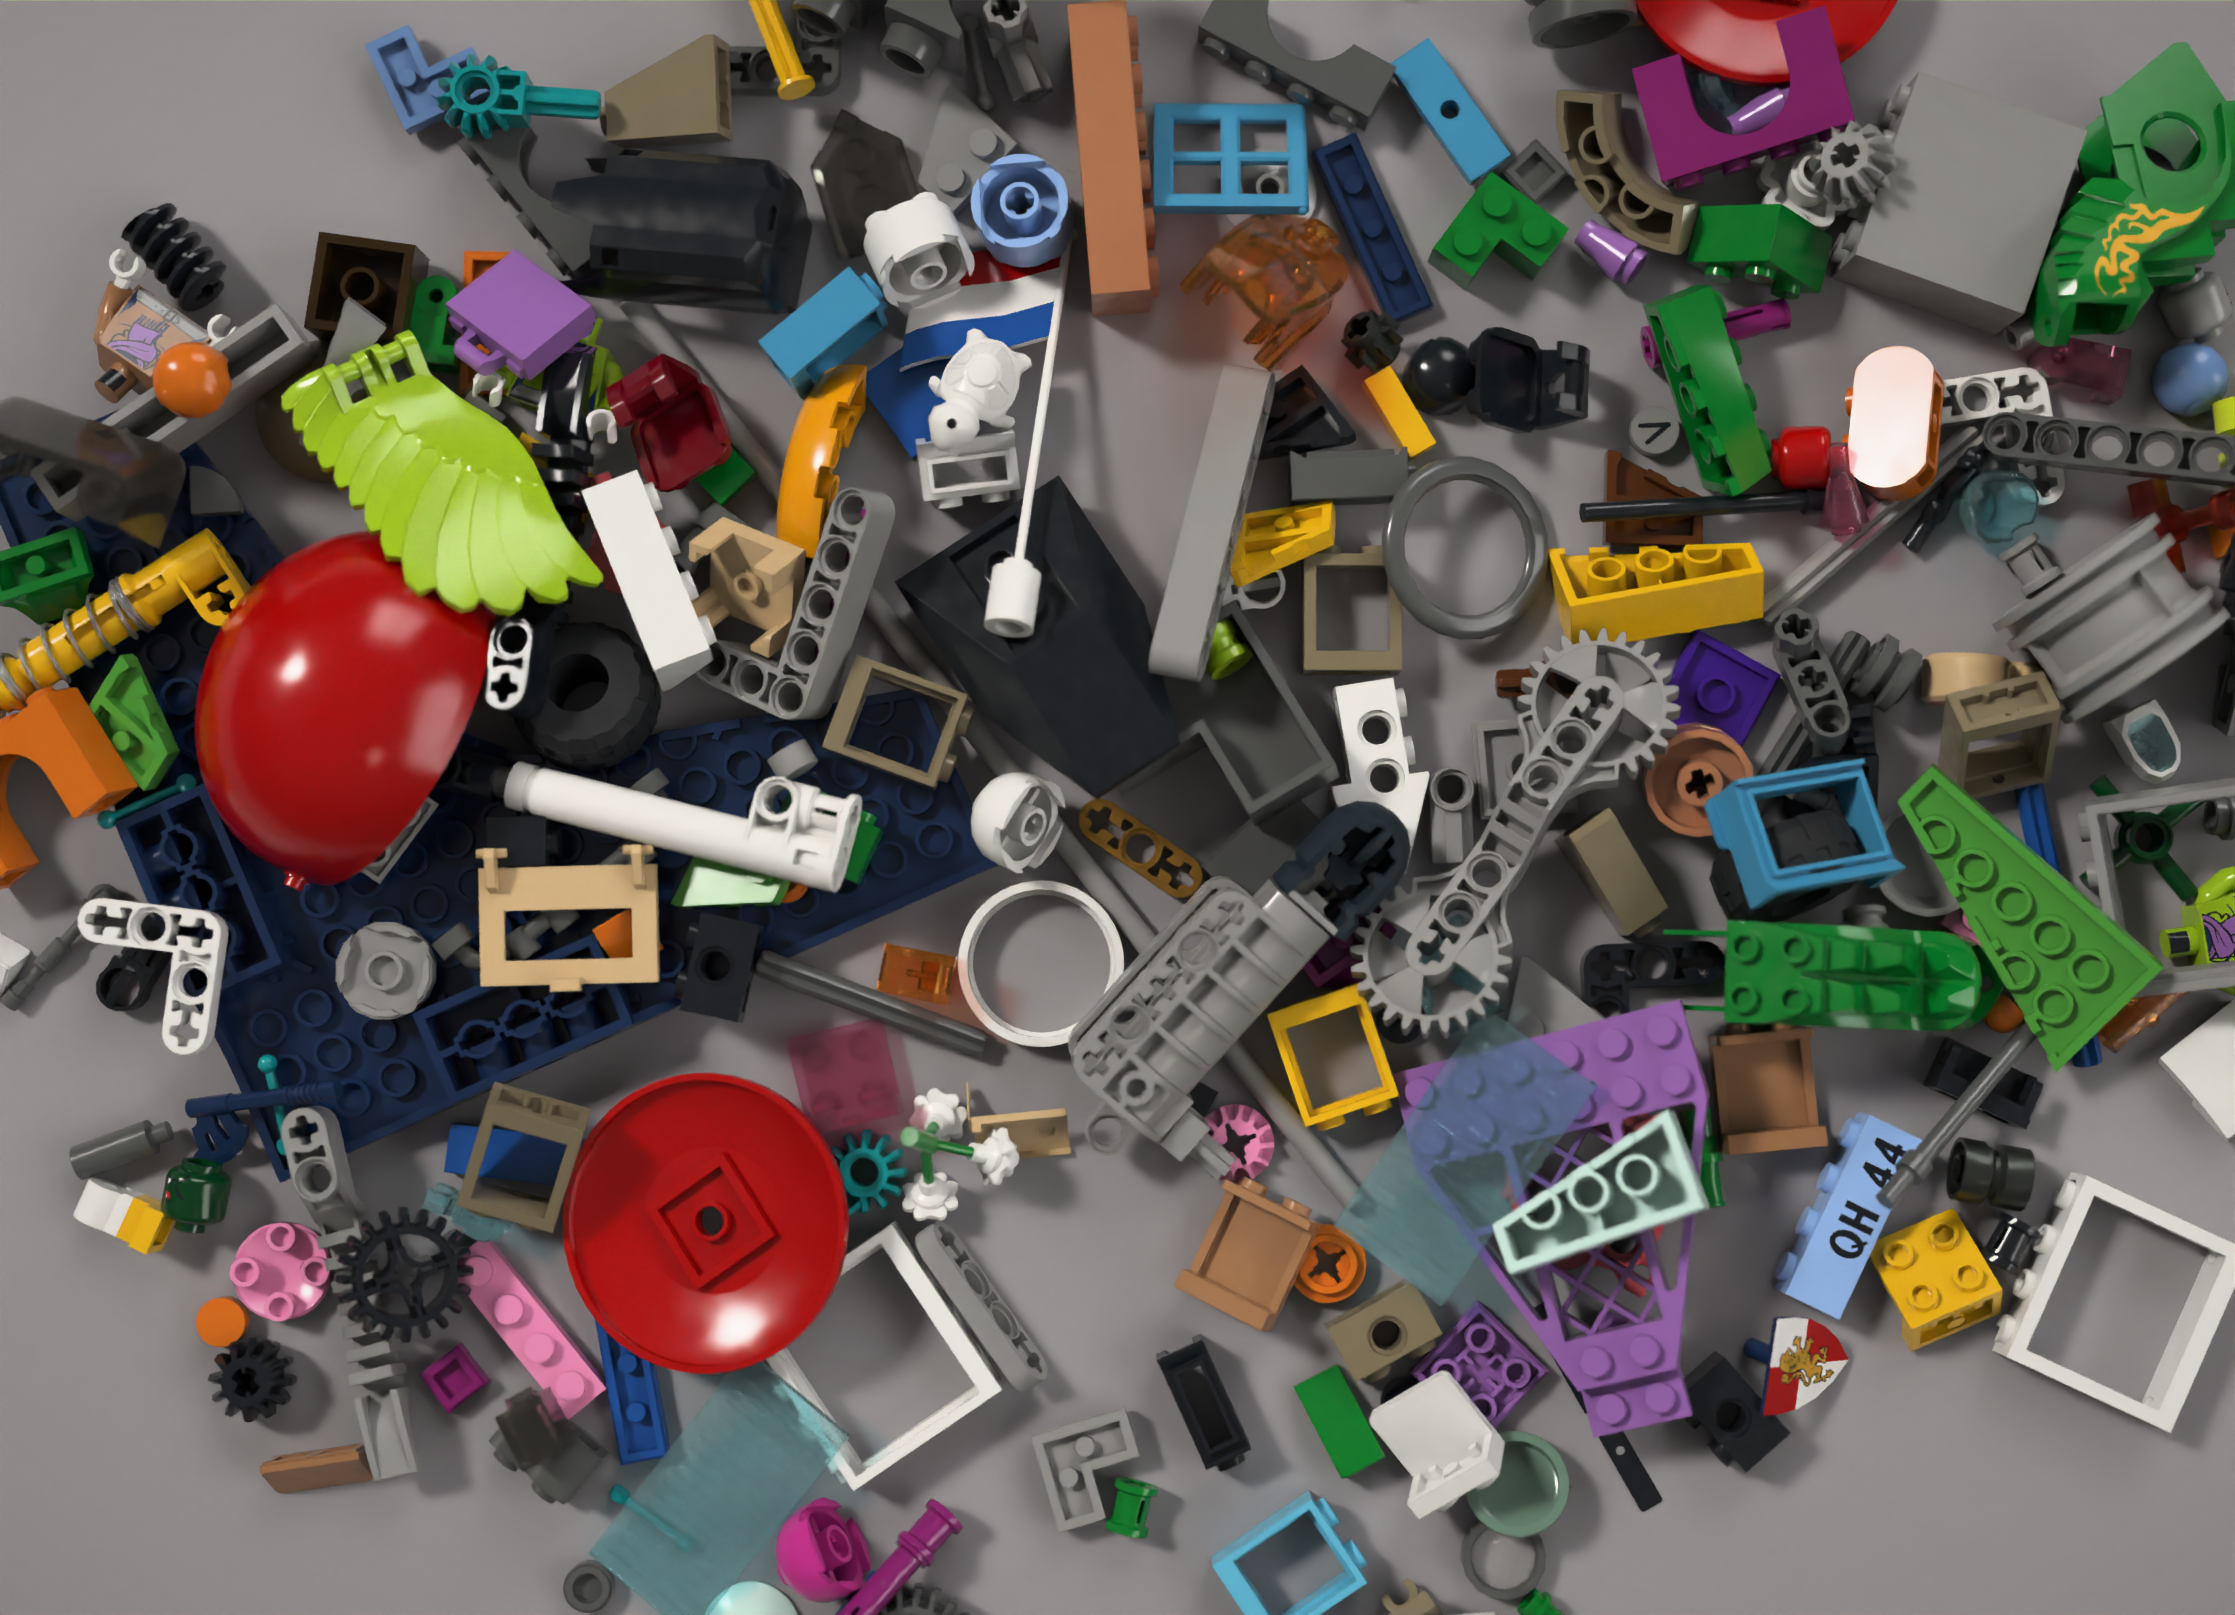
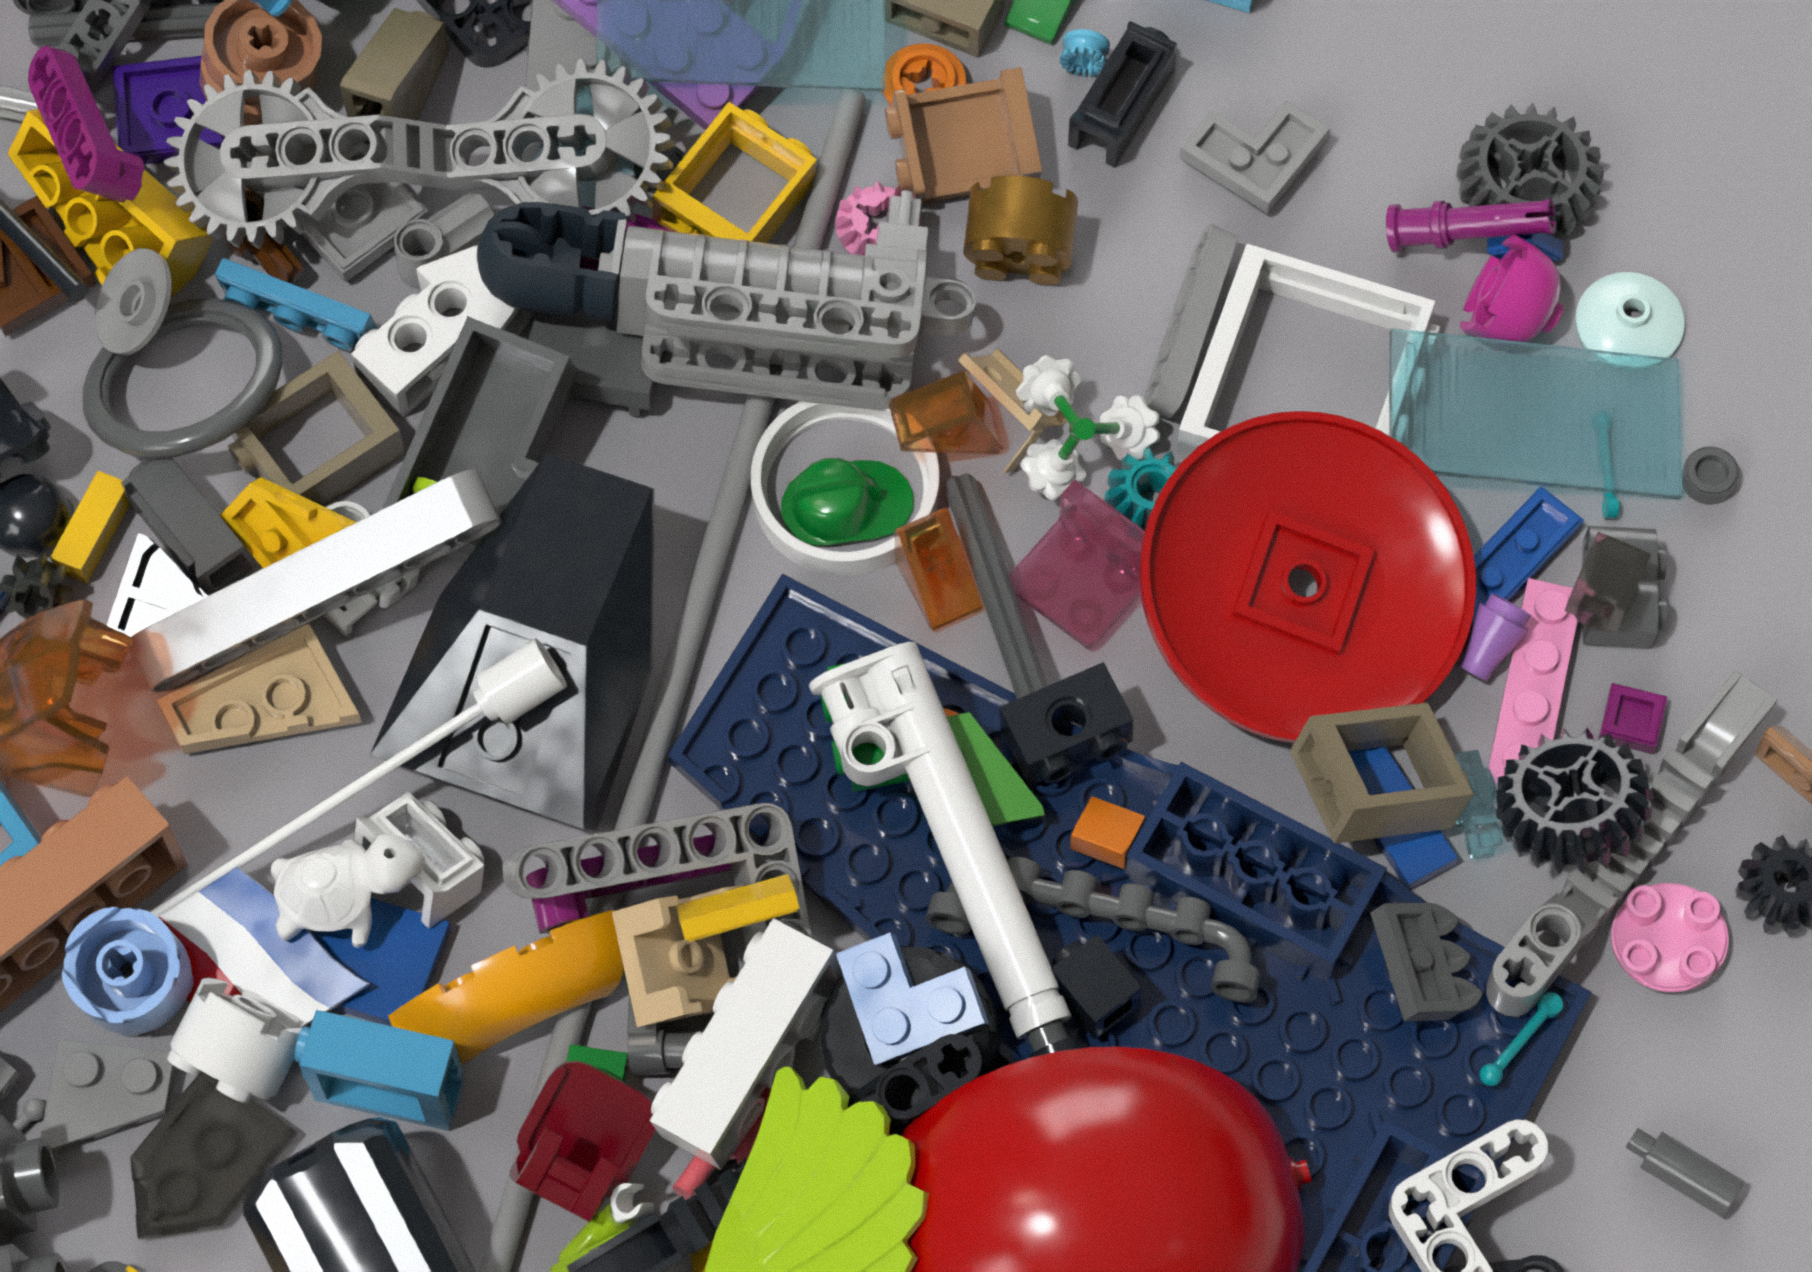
camera: 130 degrees left, 20 degrees down
(124, 1214) = (1741, 1114): leg -> none
(196, 1194) = (1666, 1059): dark green head -> none
(222, 1321) = (1760, 958): orange tile -> none
(223, 1106) = (1563, 1089): dark blue piece -> none
(373, 1078) = (1422, 962): none -> dark grey plate
(386, 970) = (1315, 1029): light grey tile -> none
(568, 889) = (1106, 904): tan piece -> none
(578, 1333) = (1494, 634): none -> medium lavender cone
(585, 685) = (902, 1016): none -> plate
(742, 634) = (737, 908): none -> yellow tile
(793, 760) = (825, 803): light grey piece -> none
(851, 705) = (730, 785): dark tan window -> none
(1017, 820) = (729, 577): white cylinder -> none
(1028, 1064) = (946, 418): none -> clear orange slope
(1029, 956) = (846, 502): none -> green piece
(1116, 818) = (661, 454): pearl gold beam -> none
(1131, 1507) = (1259, 90): green bush -> none
(1137, 1233) = (1020, 229): none -> pearl gold brick
(1171, 443) = (261, 696): none -> tan wing
(1261, 1401) = (1084, 52): none -> medium azure bush
(1471, 669) = (294, 305): none -> dark azure tile
(1550, 550) = (133, 301): none -> light grey dish
(1716, 592) = (79, 128): none -> magenta beam

